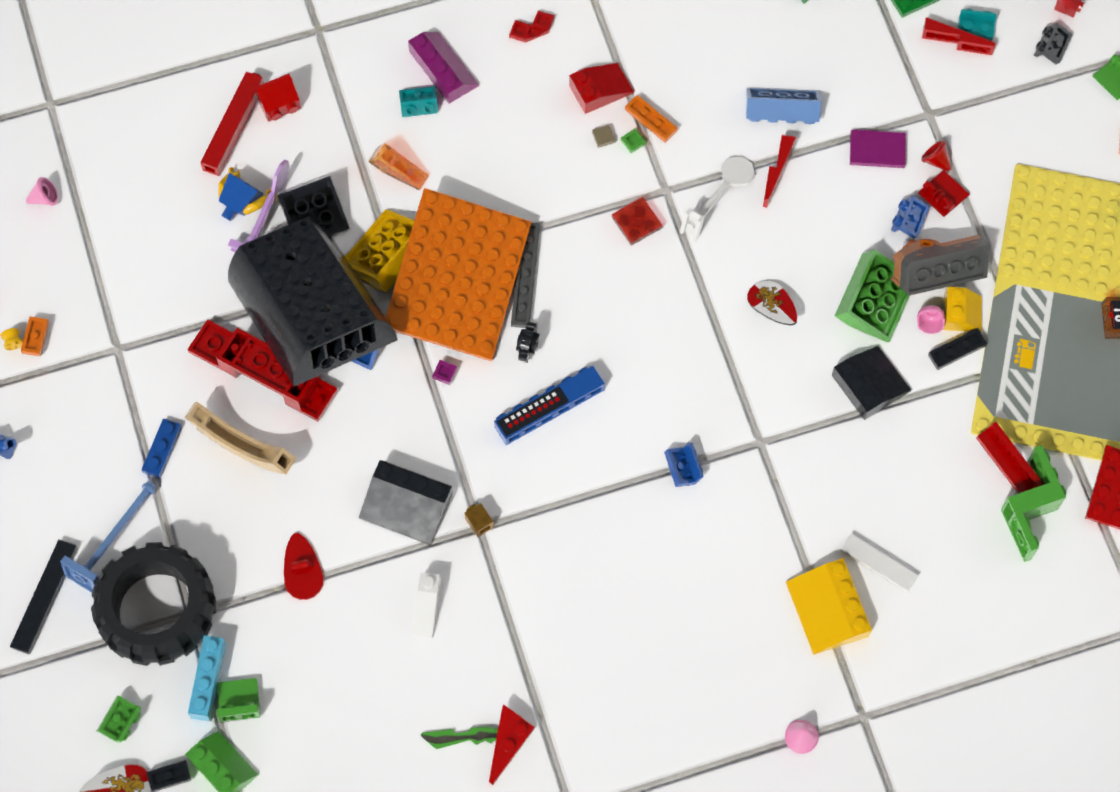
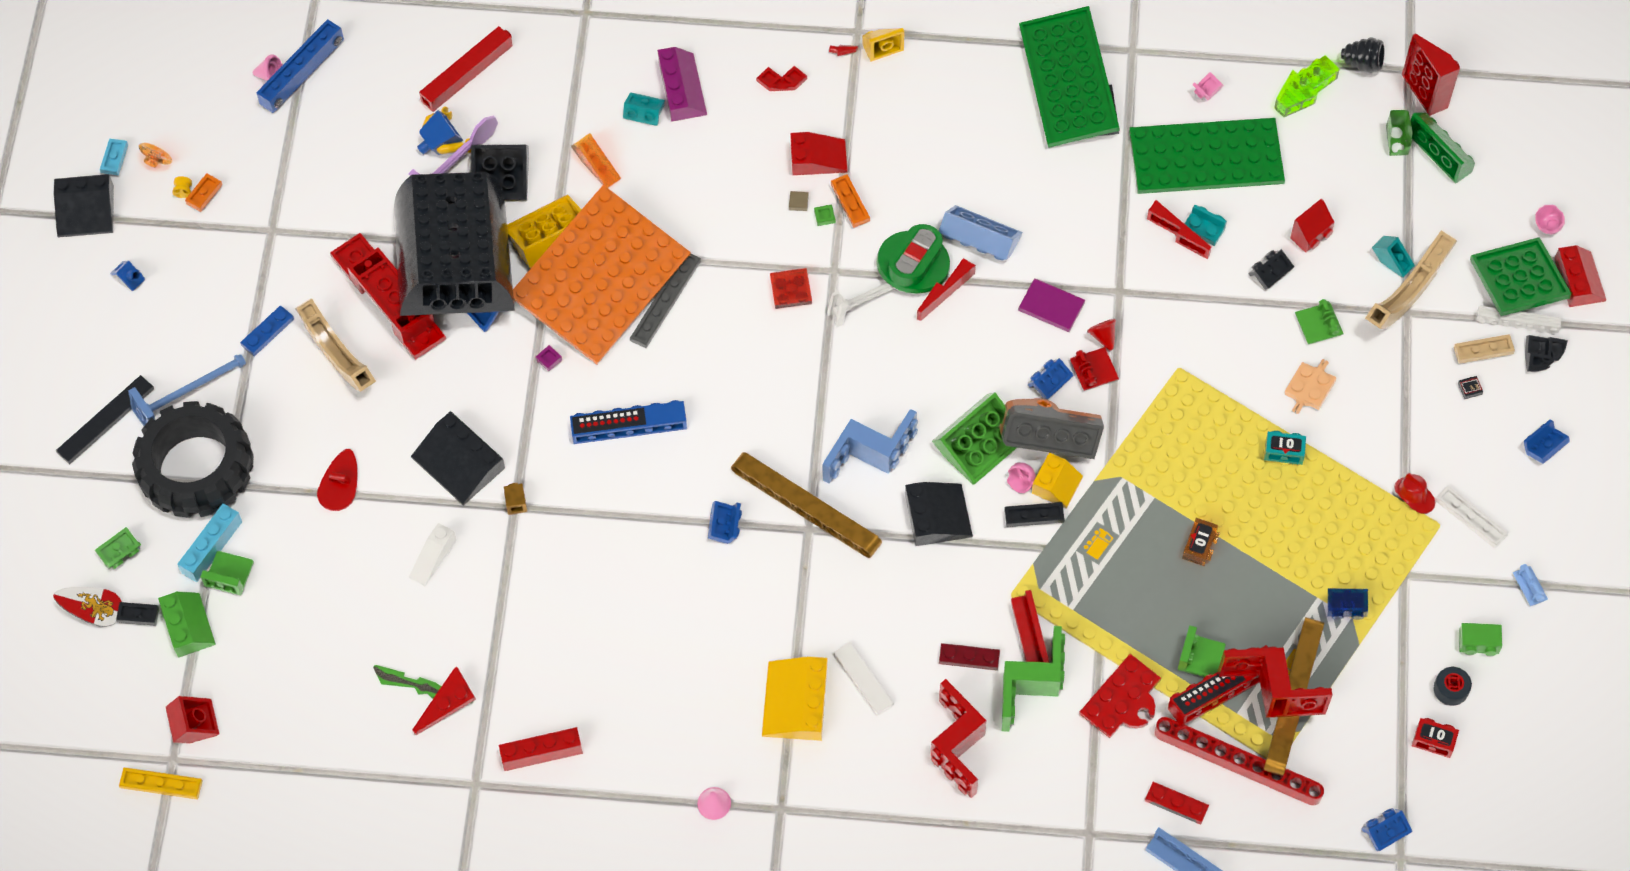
camera: 25 degrees right, 5 degrees down
(72, 178) = (300, 66): none -> blue piece
(278, 97) = (516, 59): red slope -> none
(527, 342) = (634, 357): black gear -> none
(619, 751) = (540, 749): none -> red brick
(736, 152) = (914, 259): none -> green piece
(750, 420) = (806, 505): none -> pearl gold beam
(772, 302) = (879, 407): shield -> none
(785, 342) = (870, 446): none -> medium blue bracket
(963, 504) = (969, 656): none -> dark red plate
(990, 598) = (958, 738): none -> red bracket

